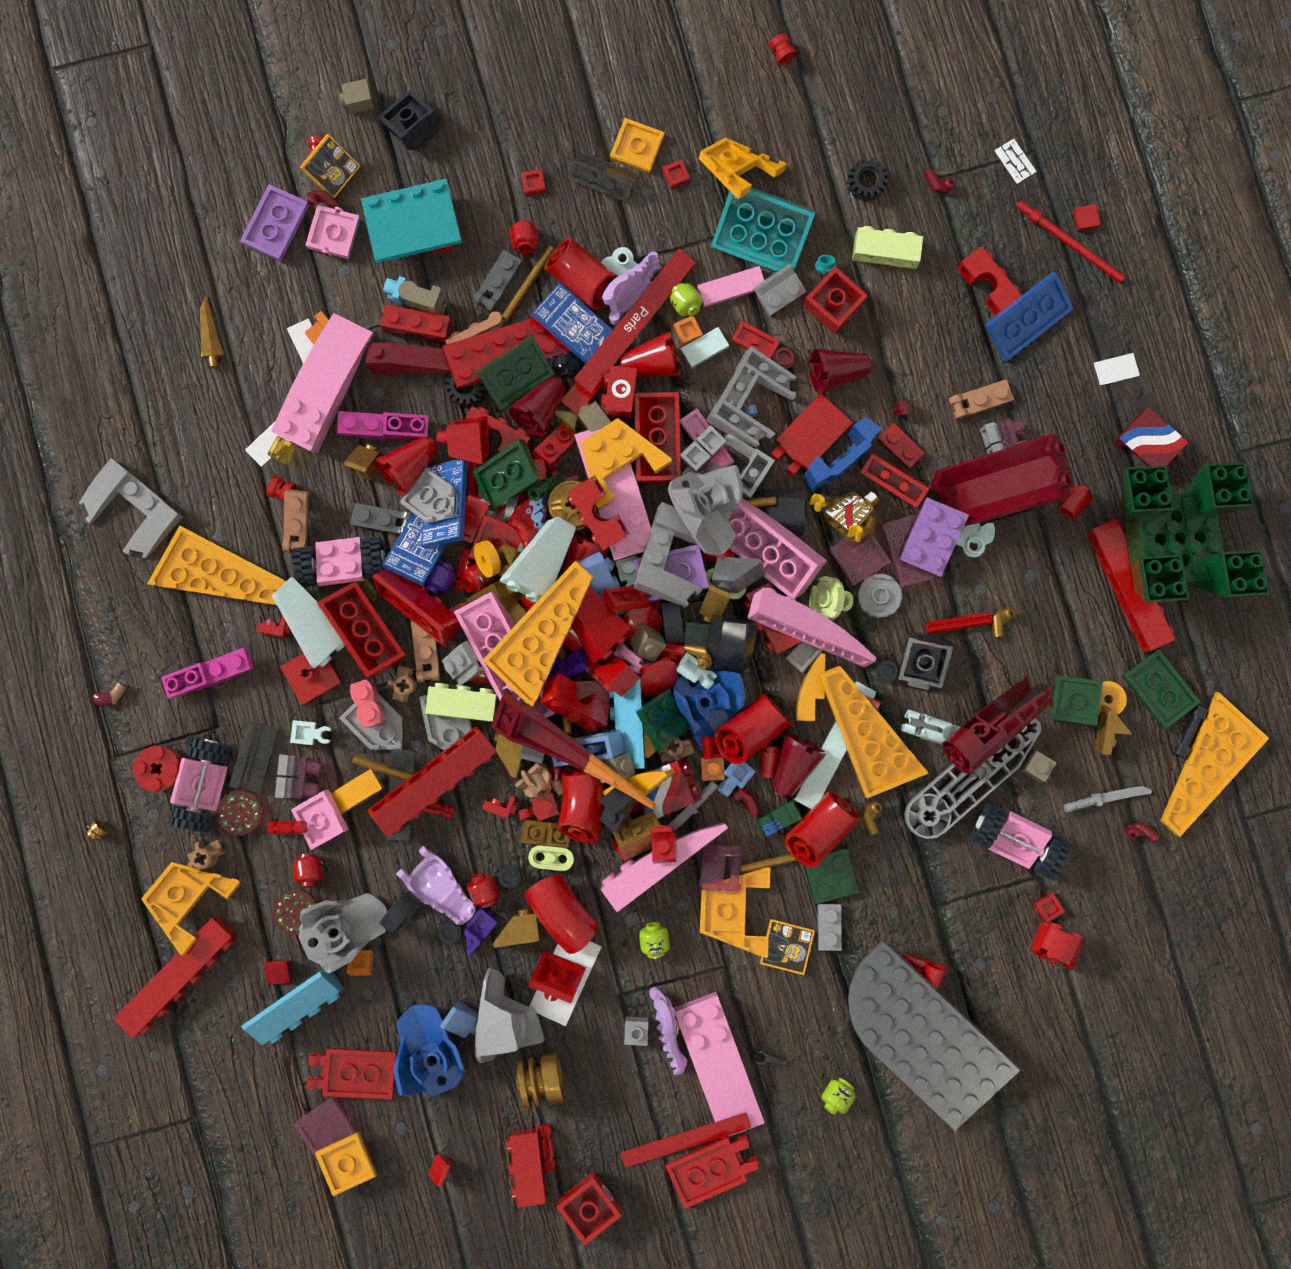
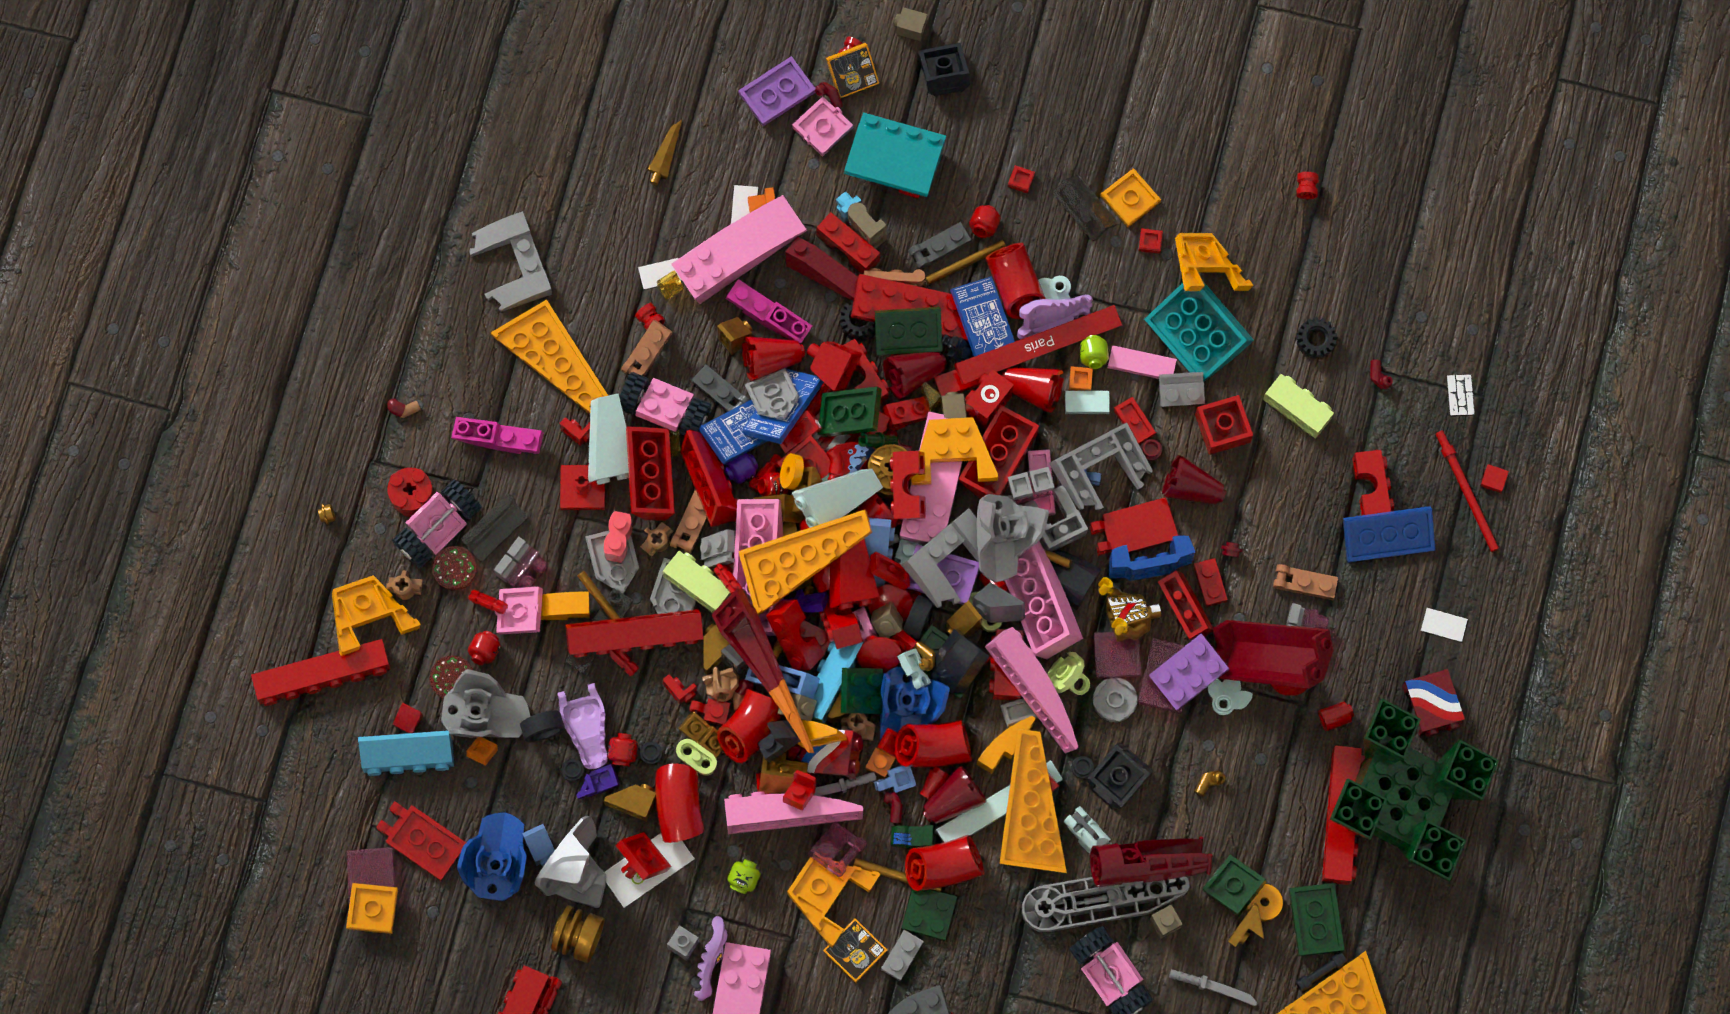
camera: 30 degrees right, 10 degrees down
(307, 732) = (550, 533): light aqua plate -> none
(440, 1169) = (447, 963): red slope -> none
(487, 687) = (727, 578): none -> red axle
(825, 264) = (1235, 388): teal plate -> none
(869, 816) = (993, 881): pearl gold arm -> none
(959, 623) = (1171, 762): red axle -> none

